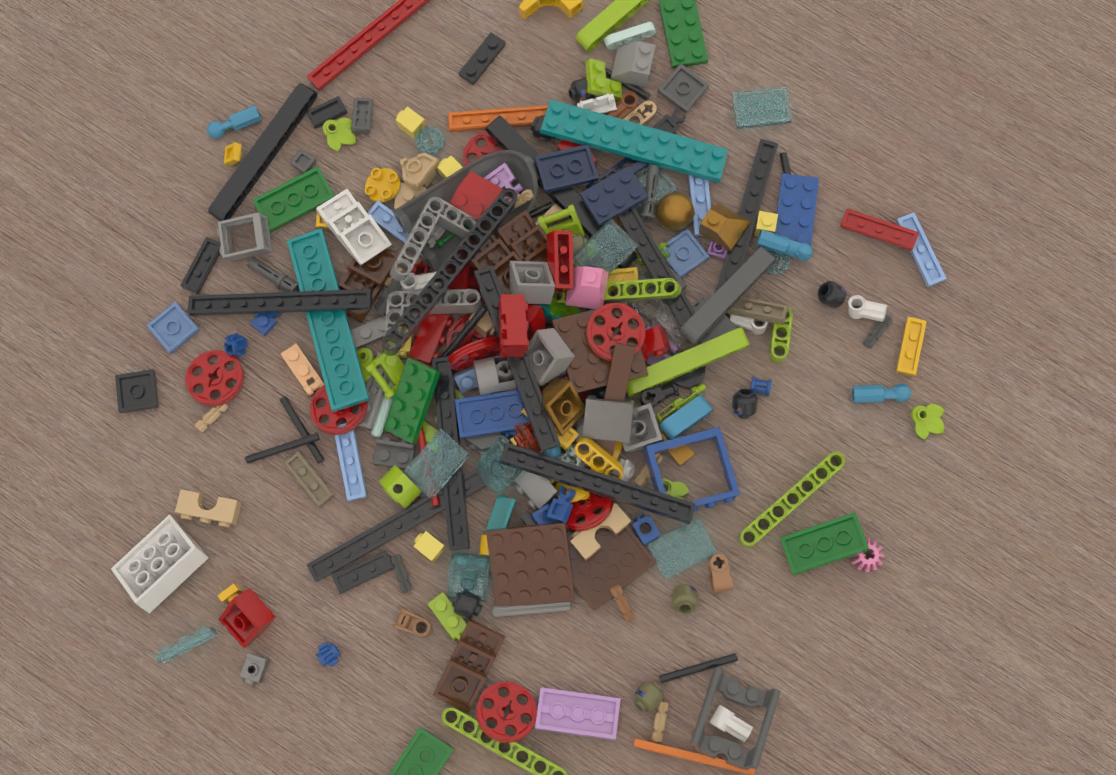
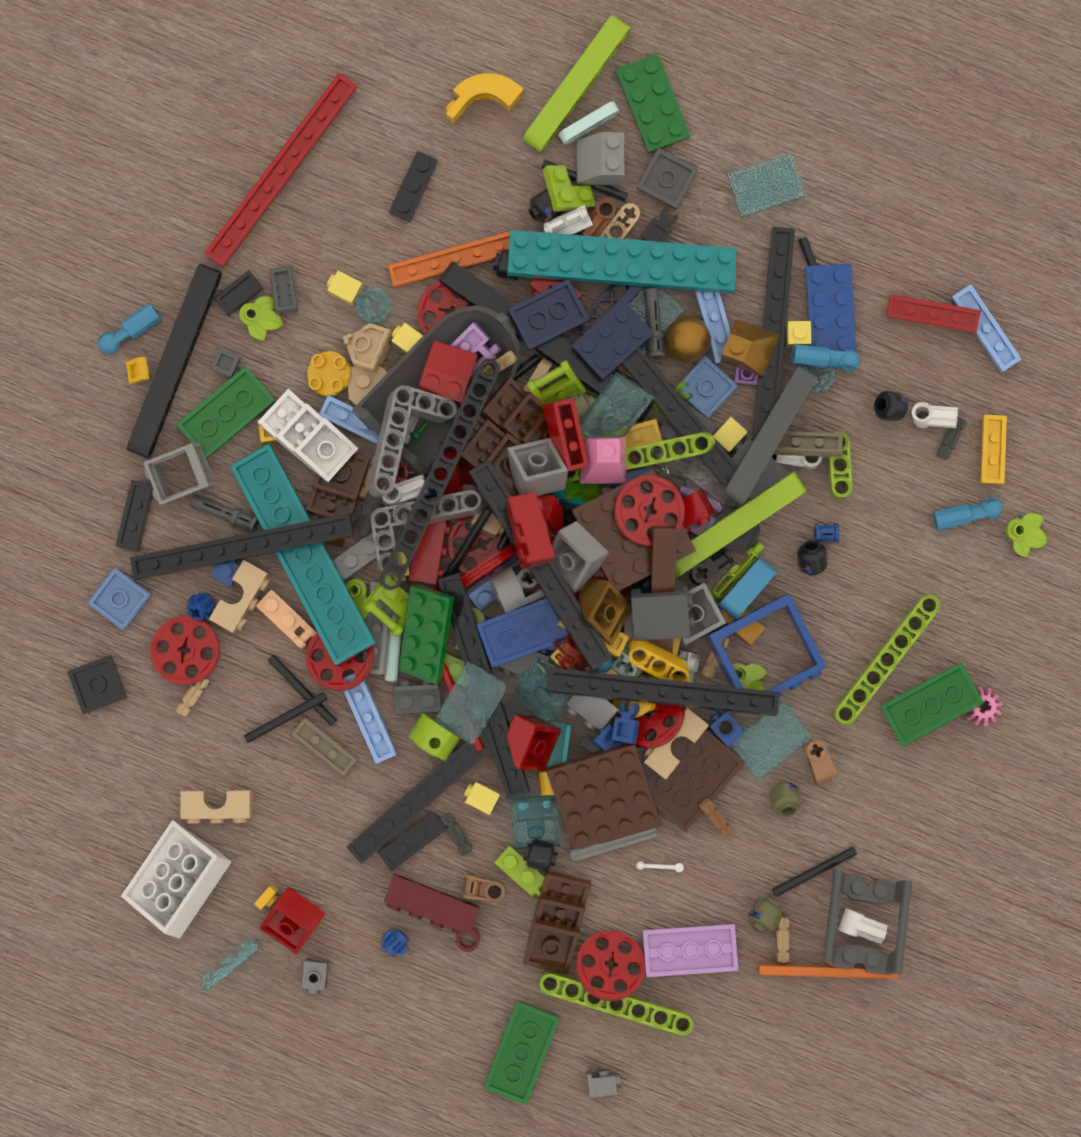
camera: 15 degrees left, 10 degrees up
(282, 335) = (233, 615): none -> tan arch
(369, 630) = (434, 905): none -> dark red hinge
(479, 506) = (531, 742): none -> red slope
(550, 632) = (677, 867): none -> white hinge
(696, 291) = (730, 434): none -> light yellow brick

